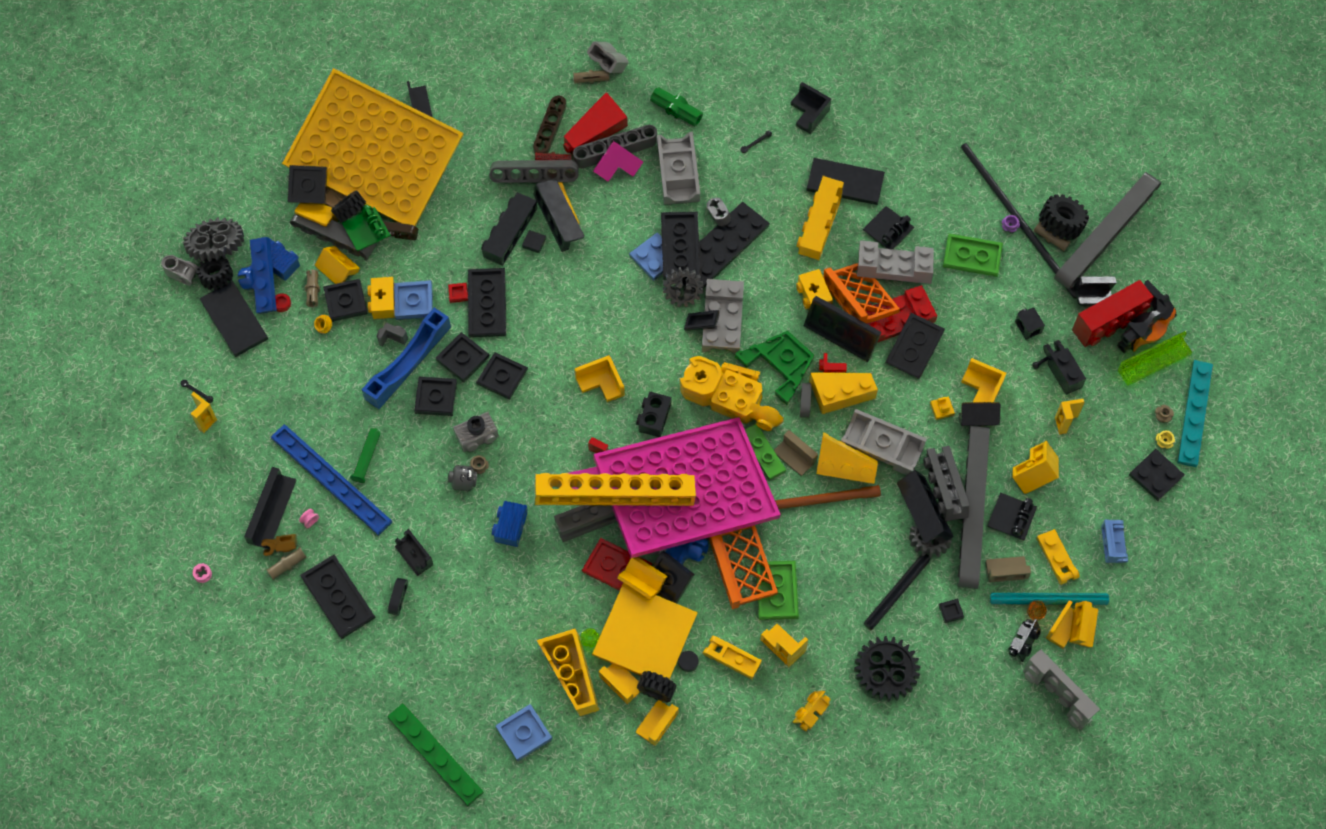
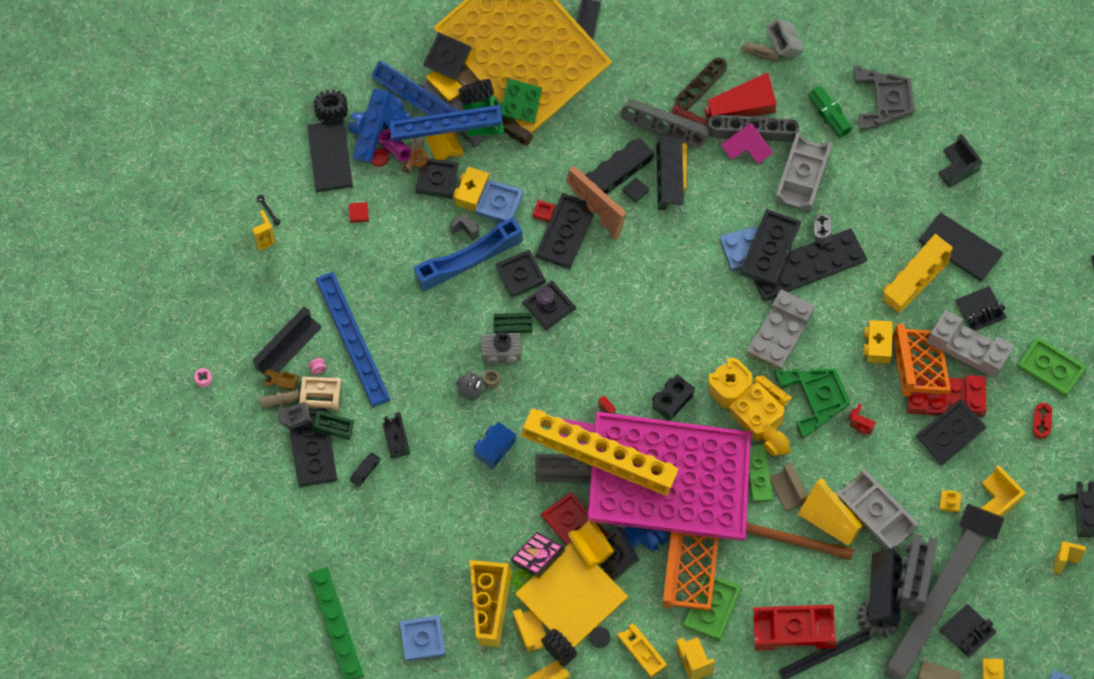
camera: 25 degrees right, 0 degrees up
(182, 271) = (302, 93): light grey piece -> none
(213, 239) = (342, 74): dark grey gear -> none
(284, 360) = (358, 212): none -> red tile
(291, 285) = (395, 148): none -> magenta piece
(293, 231) = (410, 90): none -> blue plate
(308, 573) = (294, 416): none -> dark grey bracket
(319, 324) = (407, 192): yellow plate -> none
(320, 287) = (419, 158): none -> clear orange plate
(321, 537) = (321, 388): none -> tan plate
(333, 245) = (446, 123): none -> blue plate
(348, 570) = (333, 428): none -> dark green tile
(366, 456) = (397, 325): green axle -> none
(394, 200) = (521, 100): none -> green hinge
(435, 396) = (480, 300): black plate -> none
(458, 405) = (528, 316): none -> dark green tile
(495, 368) = (545, 295): none -> clear purple plate
(505, 263) = (597, 201): none -> nougat wing
(597, 609) = (537, 555): none -> tile
(600, 374) = (638, 339): yellow panel -> none
(691, 281) = (764, 286): dark grey gear -> none
(702, 320) = (758, 327): black tile -> none
(725, 74) = (892, 95): none -> dark grey wing
(744, 149) = (877, 178): black hinge -> none
(805, 400) = (821, 441): dark grey beam -> none
(842, 328) = (887, 387): black tile -> none
(842, 390) = (861, 445): yellow wedge -> none
(860, 577) = (794, 626): none -> red piece
(991, 303) = (1037, 420): none -> red beam
(1029, 323) = (1074, 454): black brick -> none
(1037, 470) = (1014, 596): yellow panel -> none

